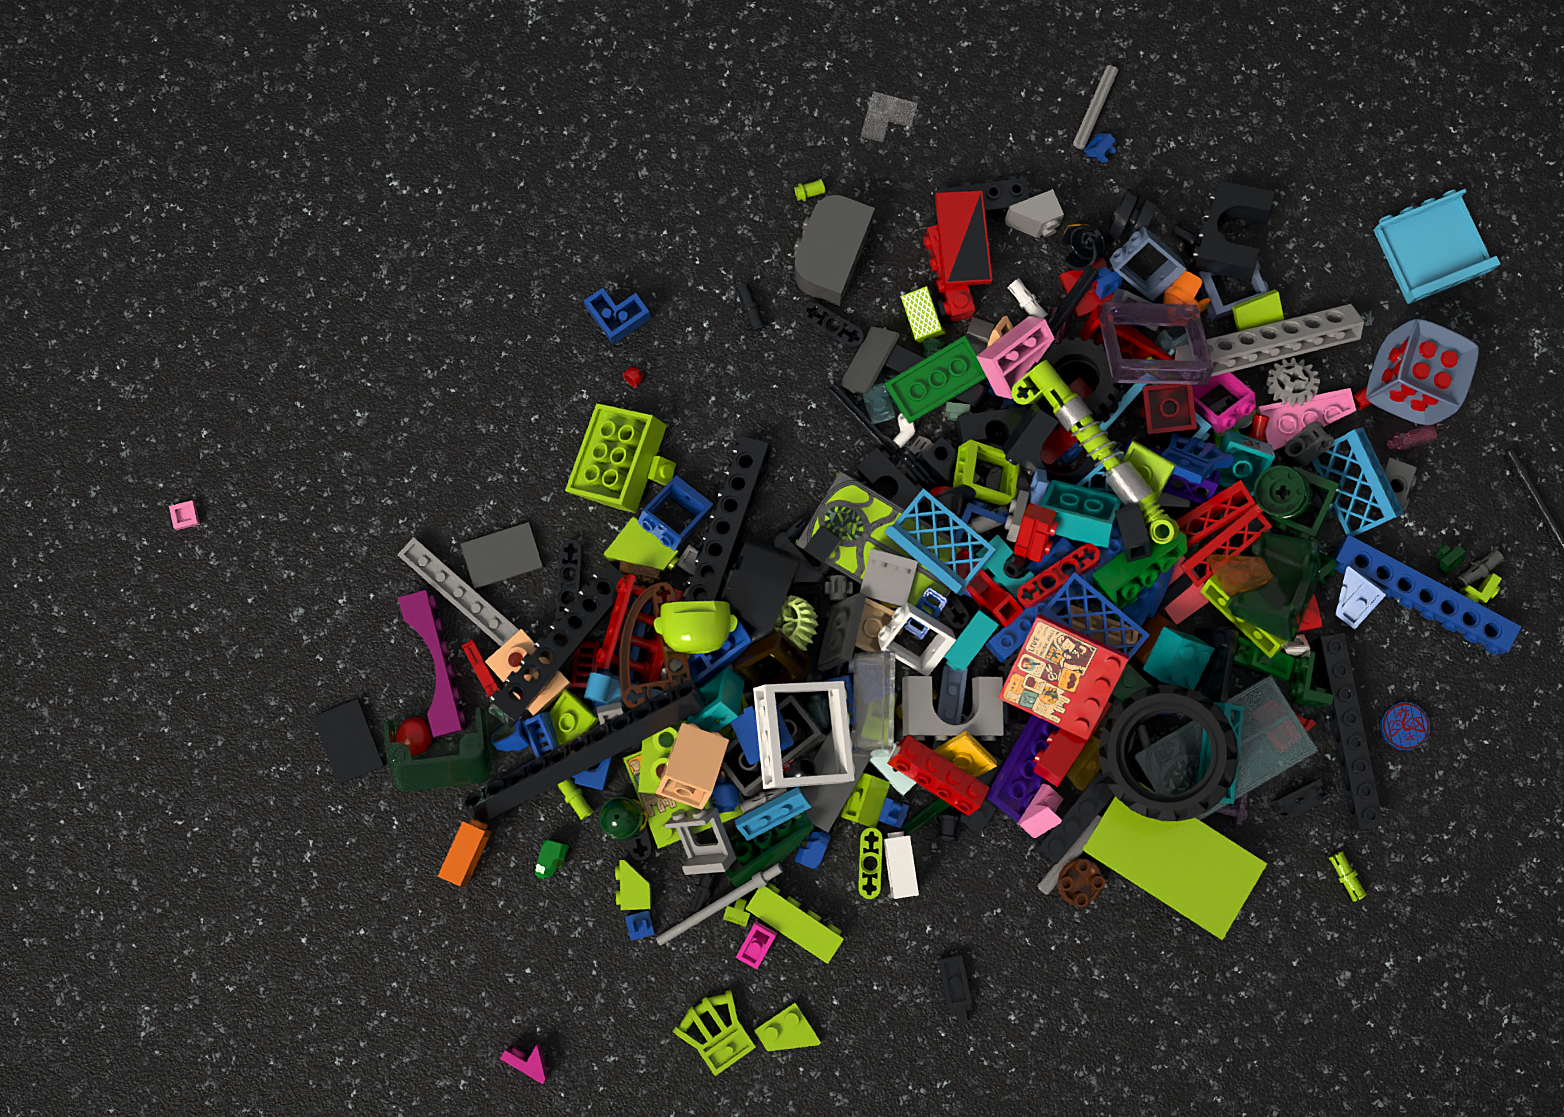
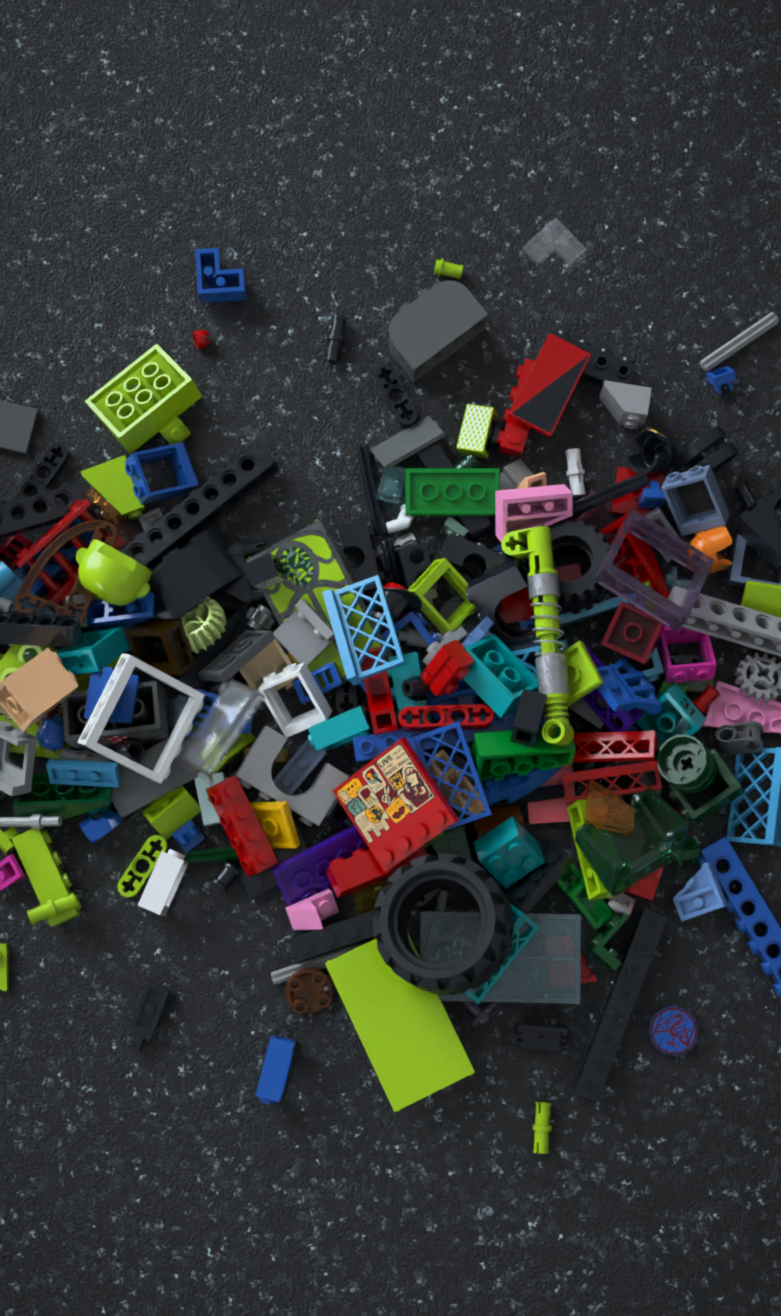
camera: 30 degrees right, 0 degrees up
(821, 946) = (52, 908): none -> lime pin
(1096, 966) = (275, 1069): none -> blue window

